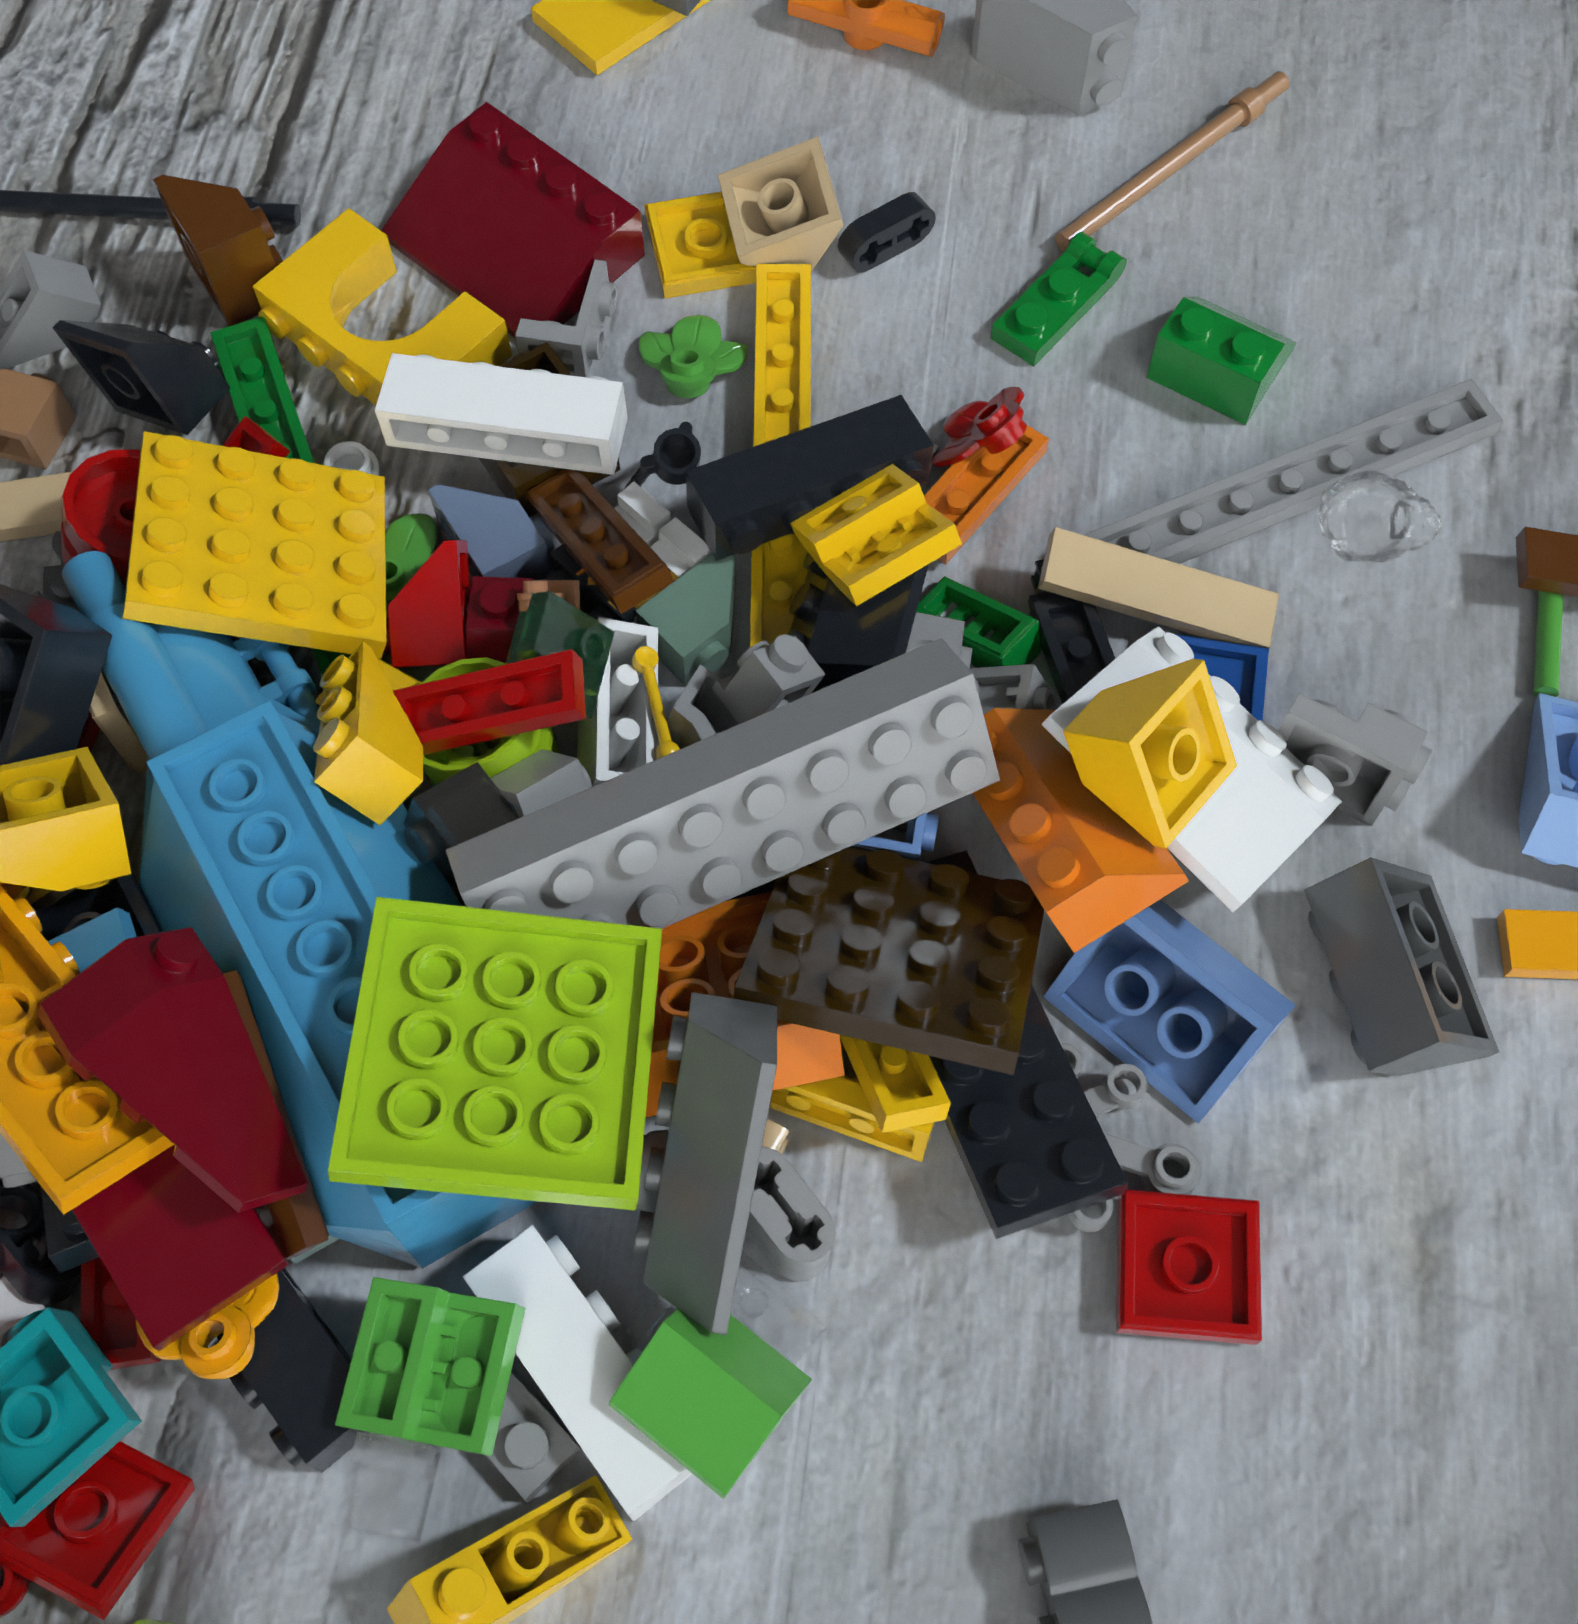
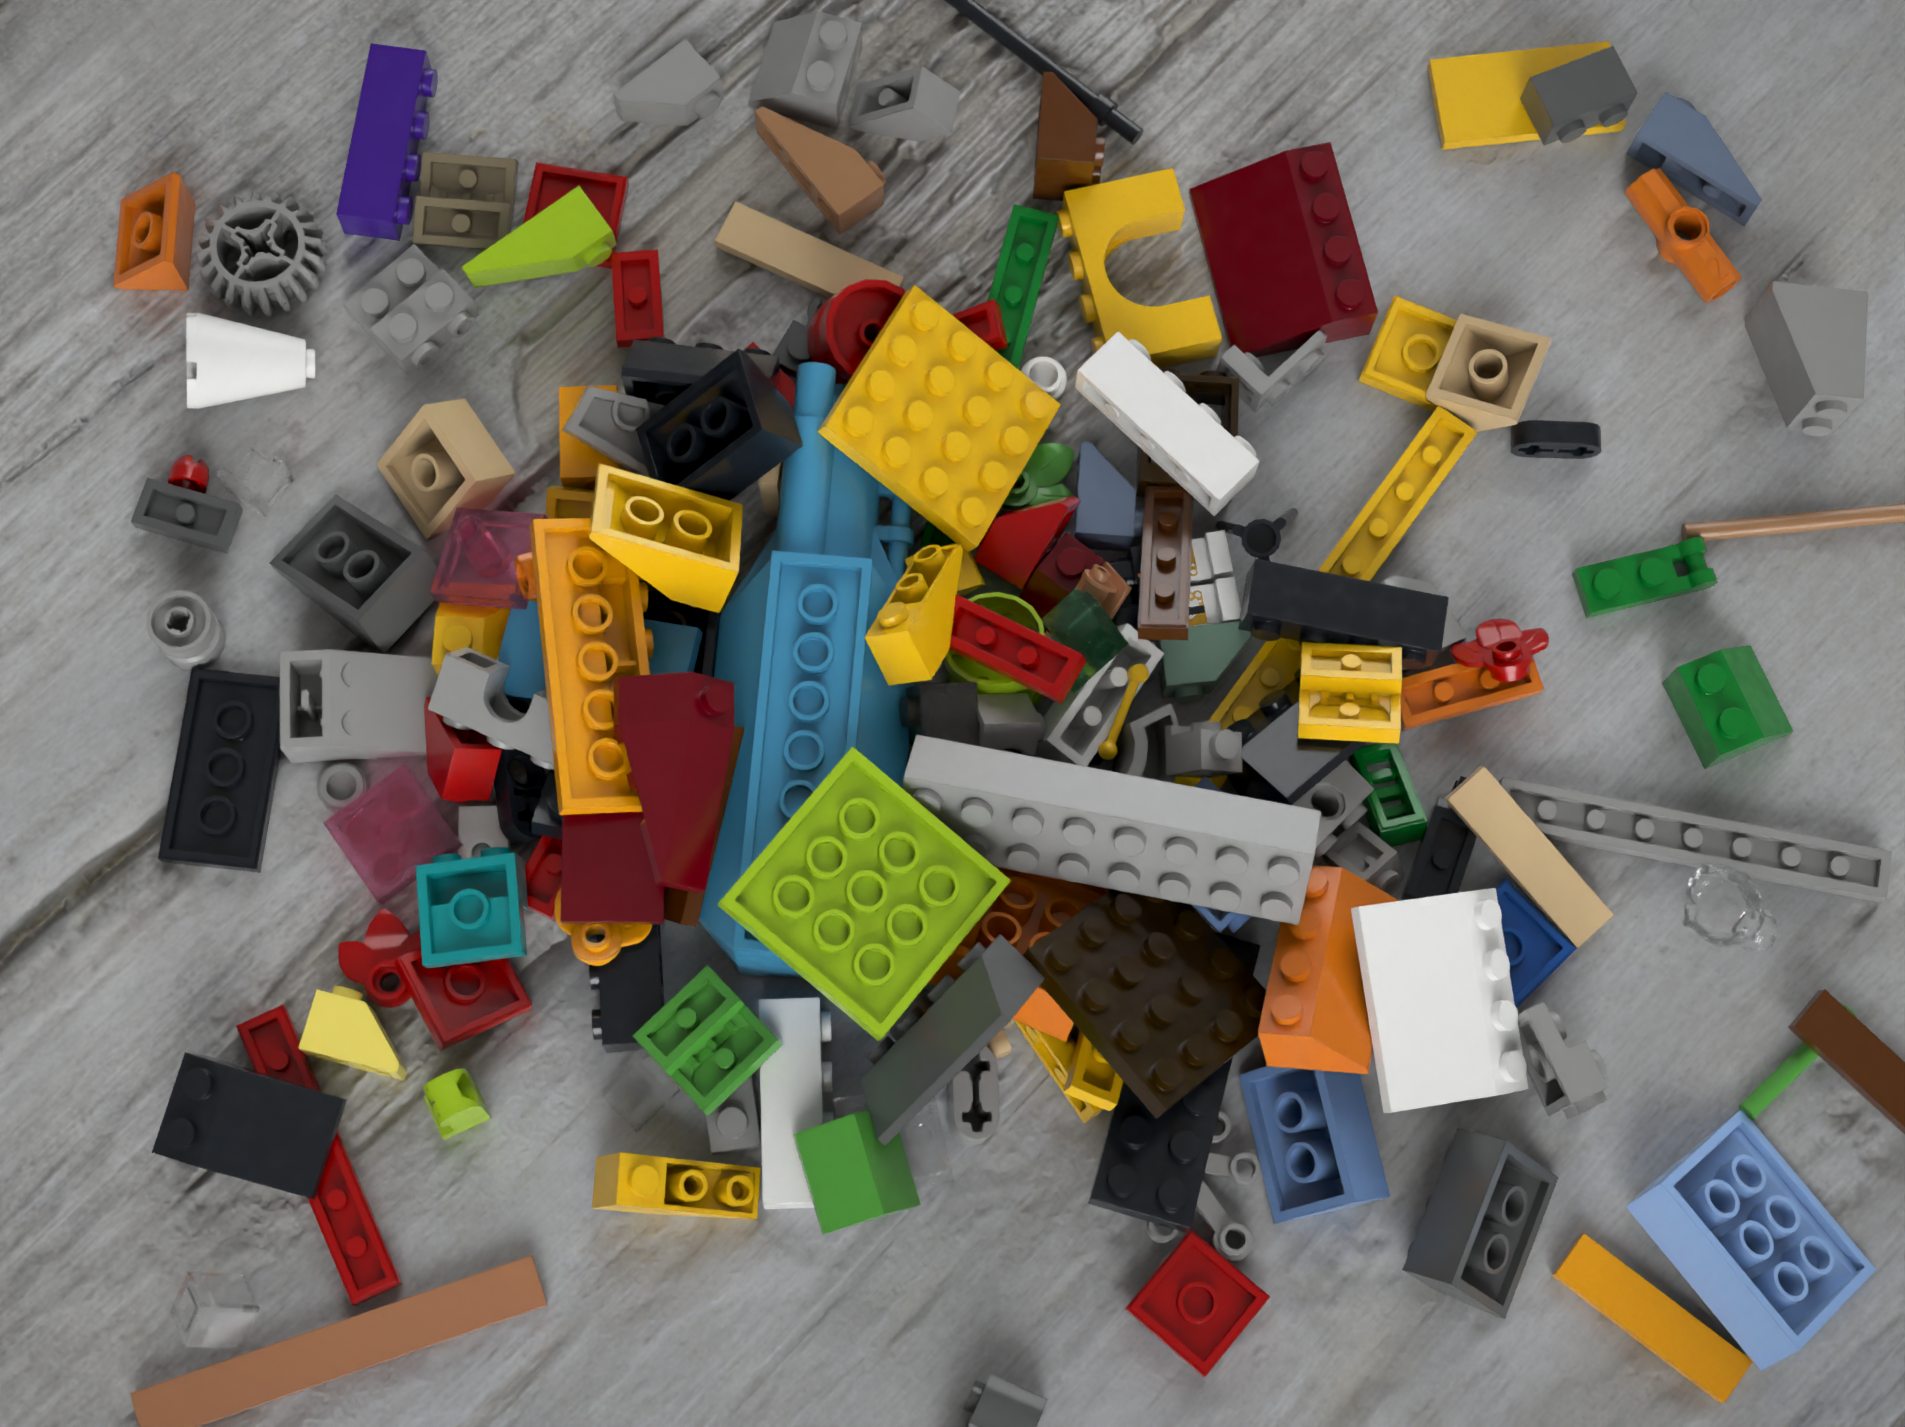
camera: 30 degrees right, 10 degrees up
(147, 372) = (951, 216): black slope -> none
(691, 355) = (1345, 439): bright green plate -> none
(1154, 748) = (1405, 978): yellow slope -> none

